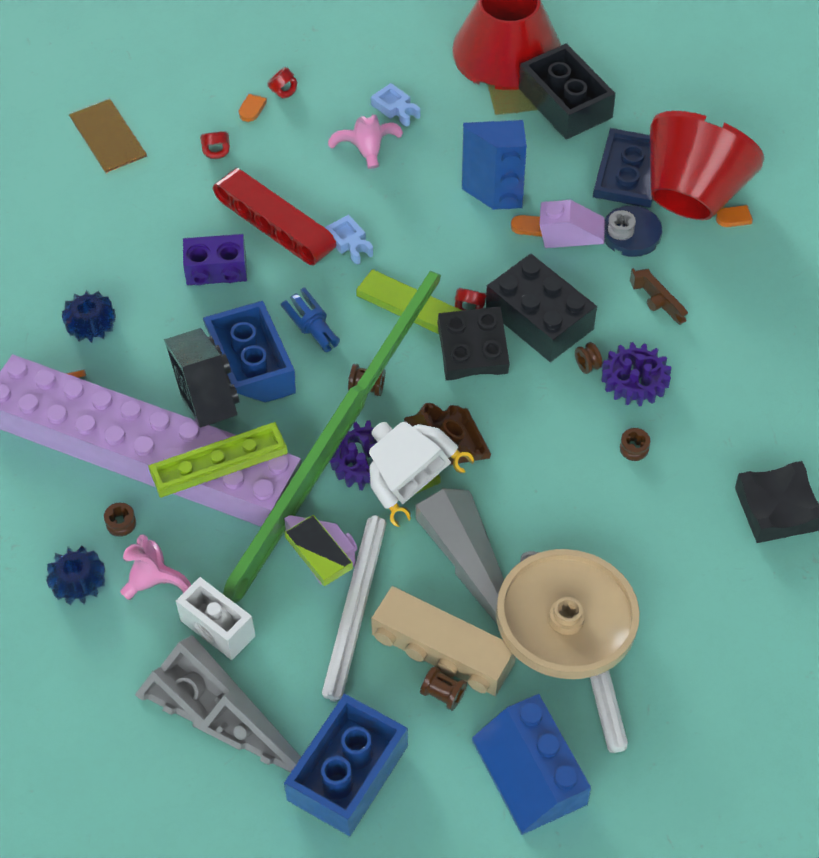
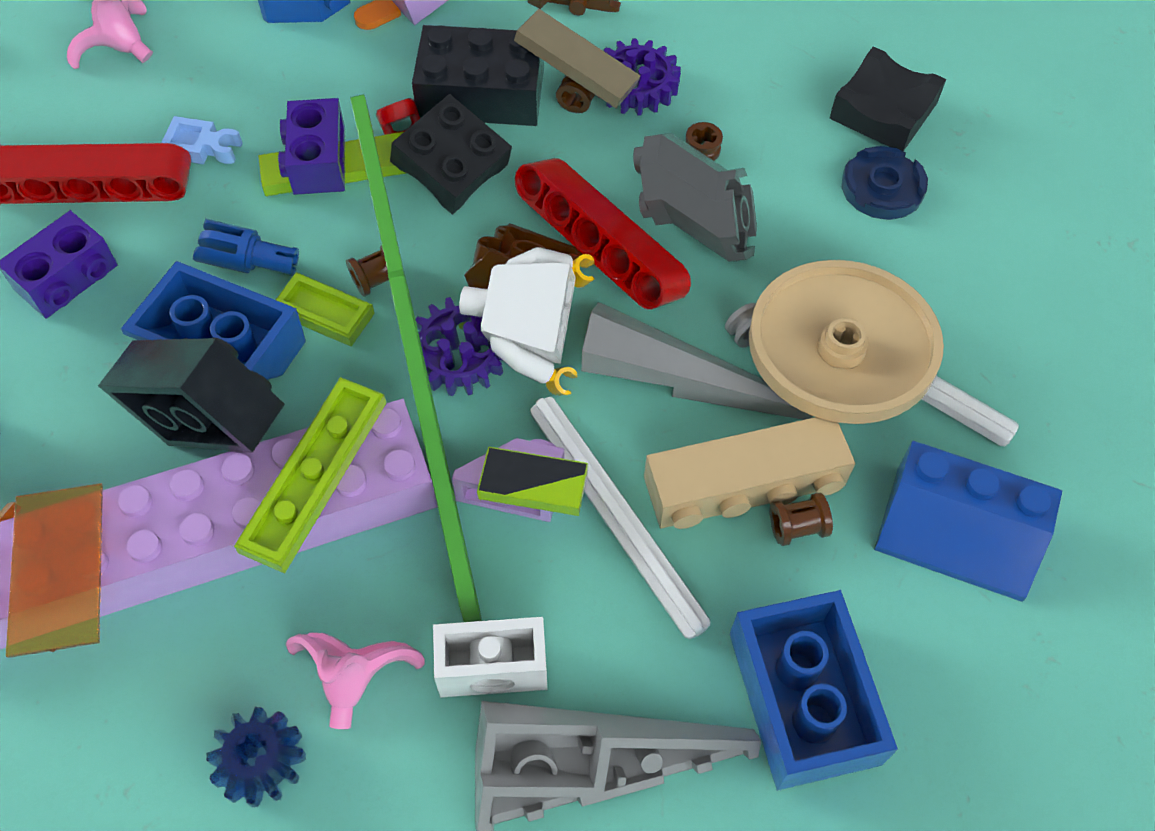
camera: 45 degrees left, 5 degrees up
(68, 415) = (55, 571): none -> clear orange piece
(120, 529) = (237, 626): reddish brown bush -> none
(321, 382) = (327, 309): none -> lime tile
(397, 284) = (313, 146): none -> dark purple brick
(508, 452) = (604, 232): none -> red beam
(580, 471) = (696, 195): none -> dark grey brick
(596, 337) = (577, 58): none -> dark tan tile
(722, 552) = (884, 183): none -> dark blue tile

